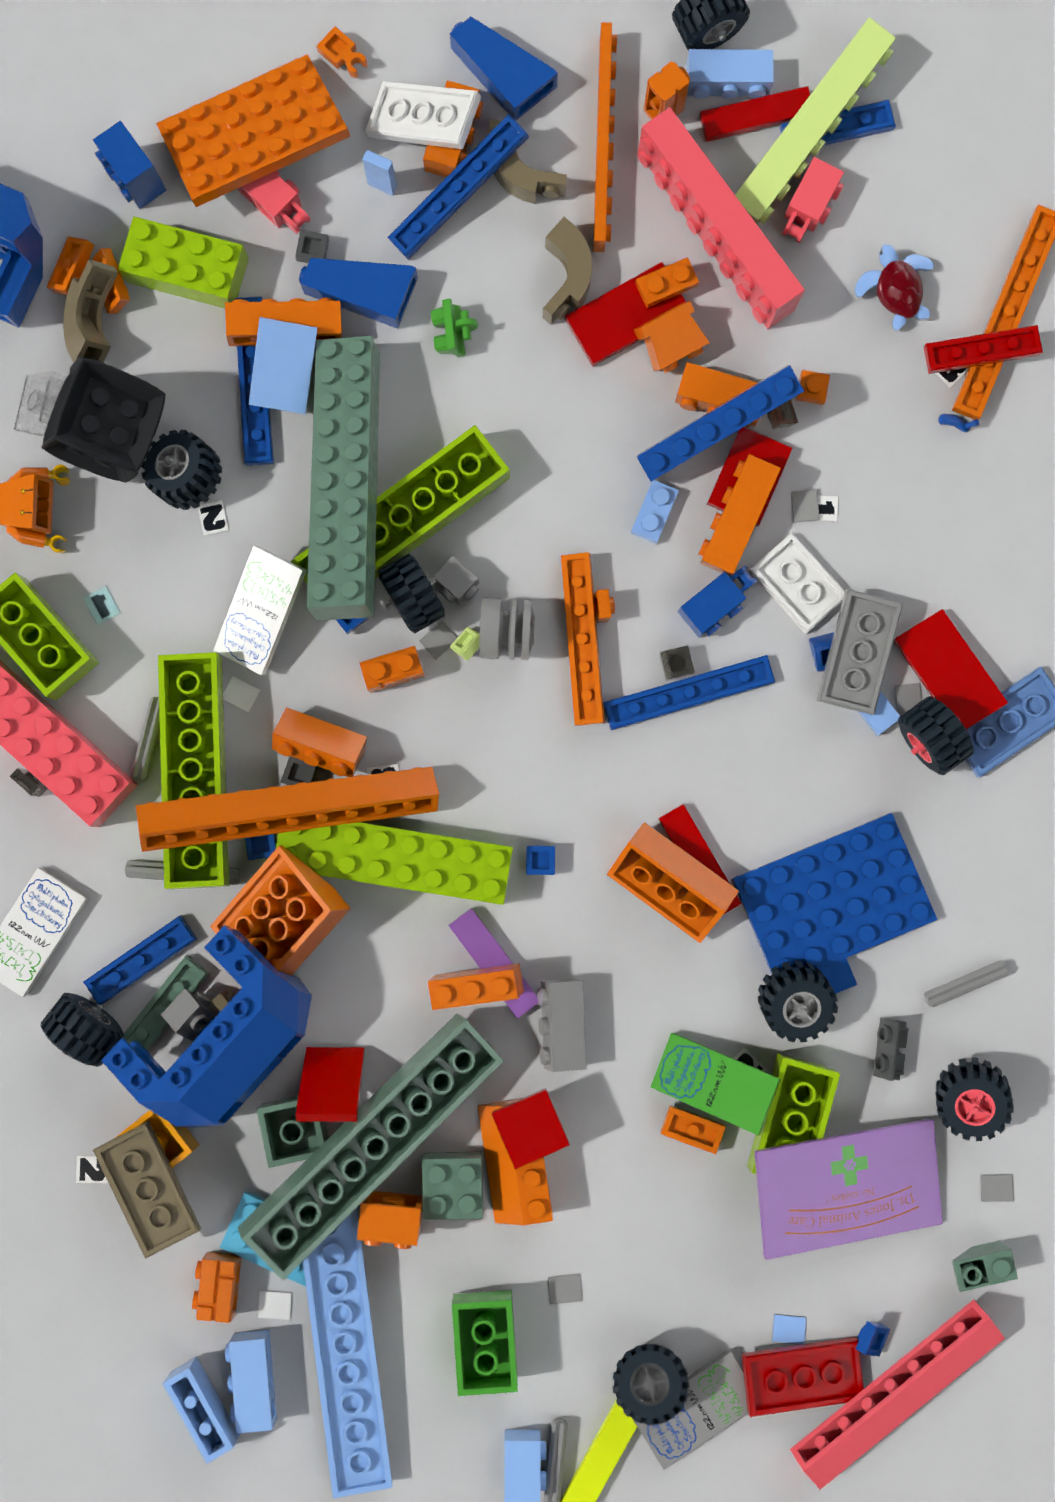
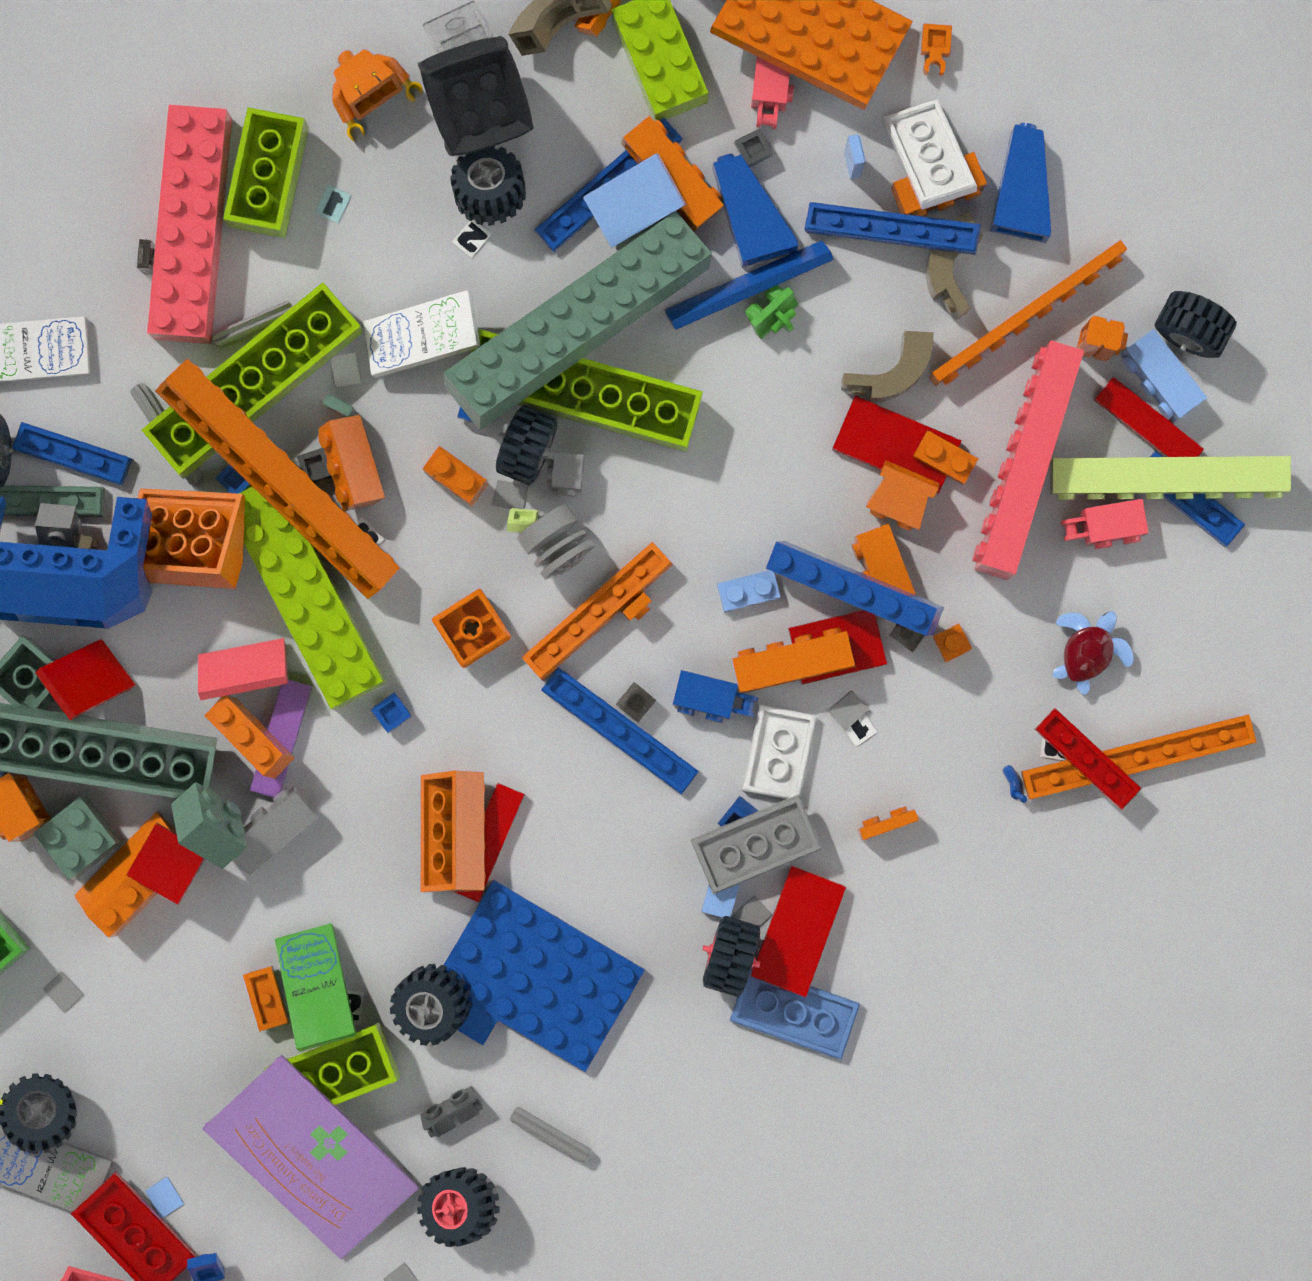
camera: 55 degrees right, 0 degrees up
(266, 719) = (339, 406): none -> sand green tile
(416, 331) = (748, 285): none -> blue tile
(417, 952) = (242, 669): none -> coral tile
(508, 733) = (452, 624): none -> orange brick
(525, 1072) = (209, 825): none -> sand green brick
(914, 550) = (899, 818): none -> orange plate

